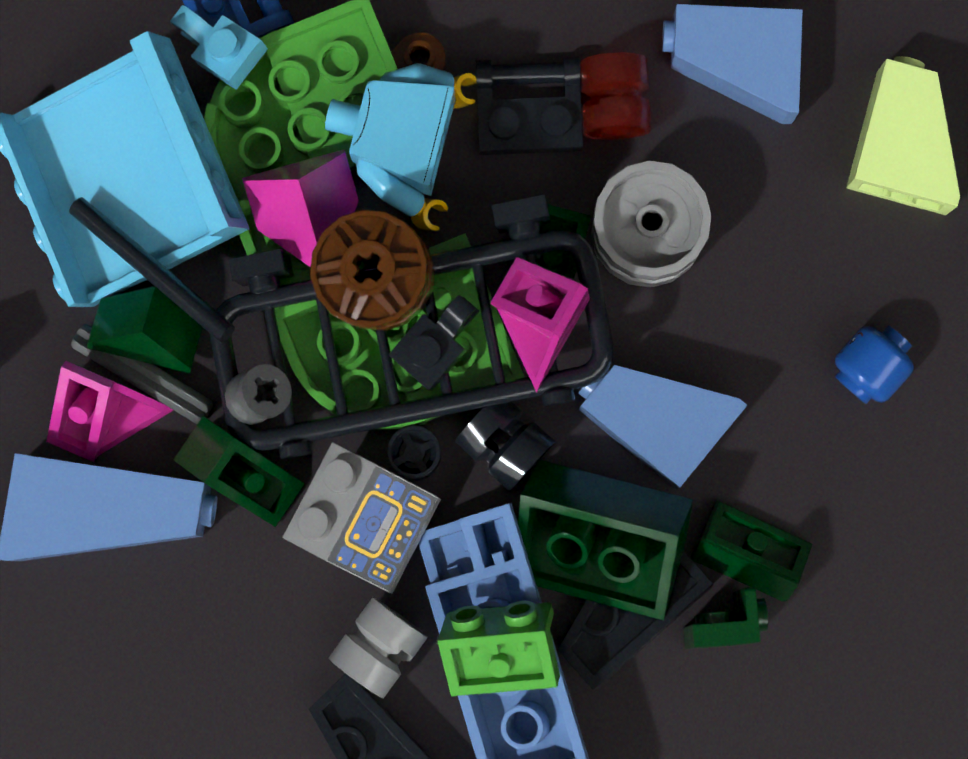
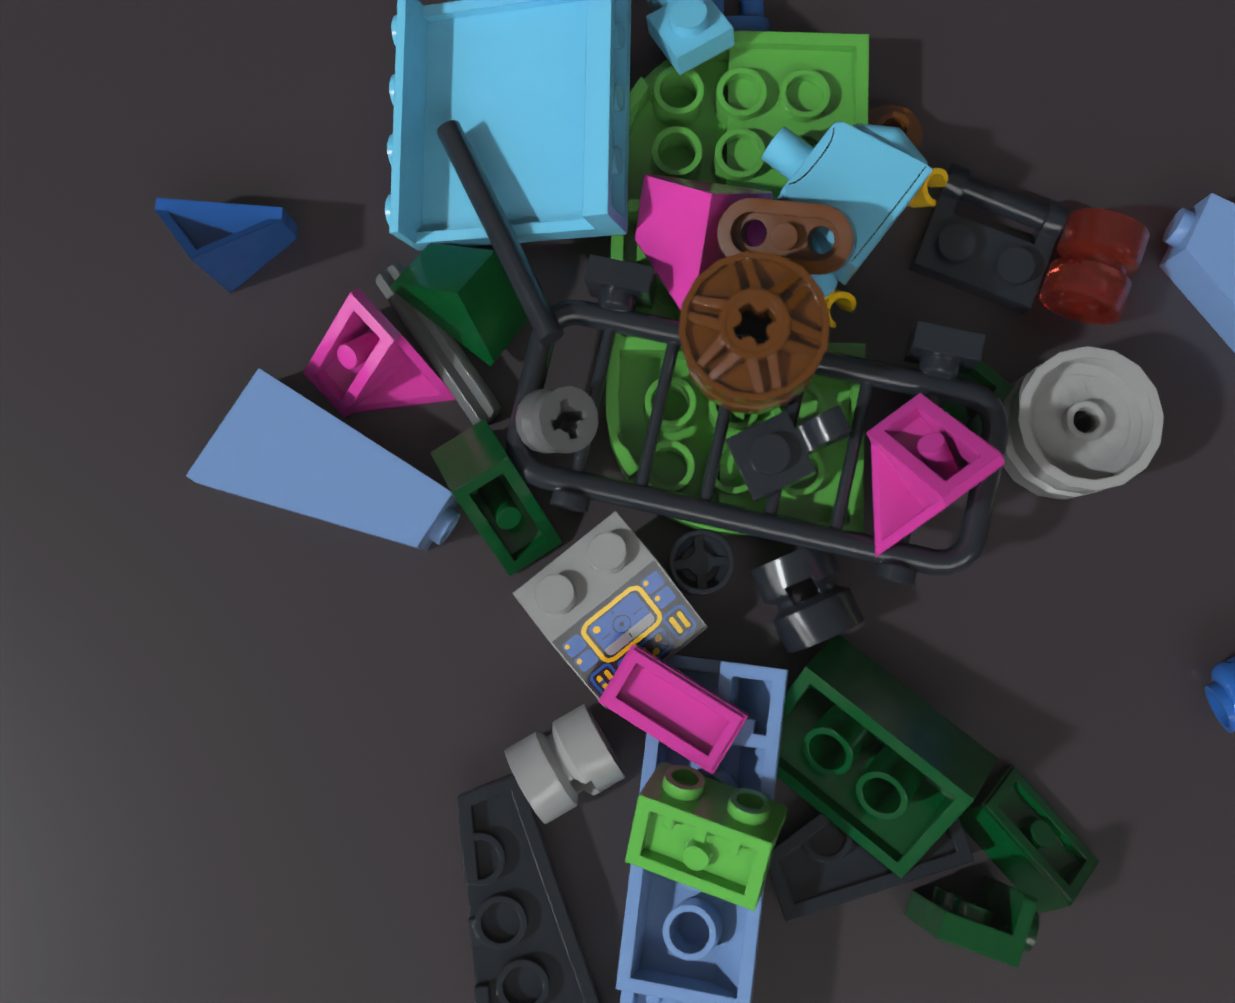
camera: 20 degrees right, 0 degrees up
(369, 185) = (789, 232): none -> reddish brown plate
(438, 568) = (673, 708): none -> dark pink tile
(660, 419) = (992, 650): medium blue slope -> none

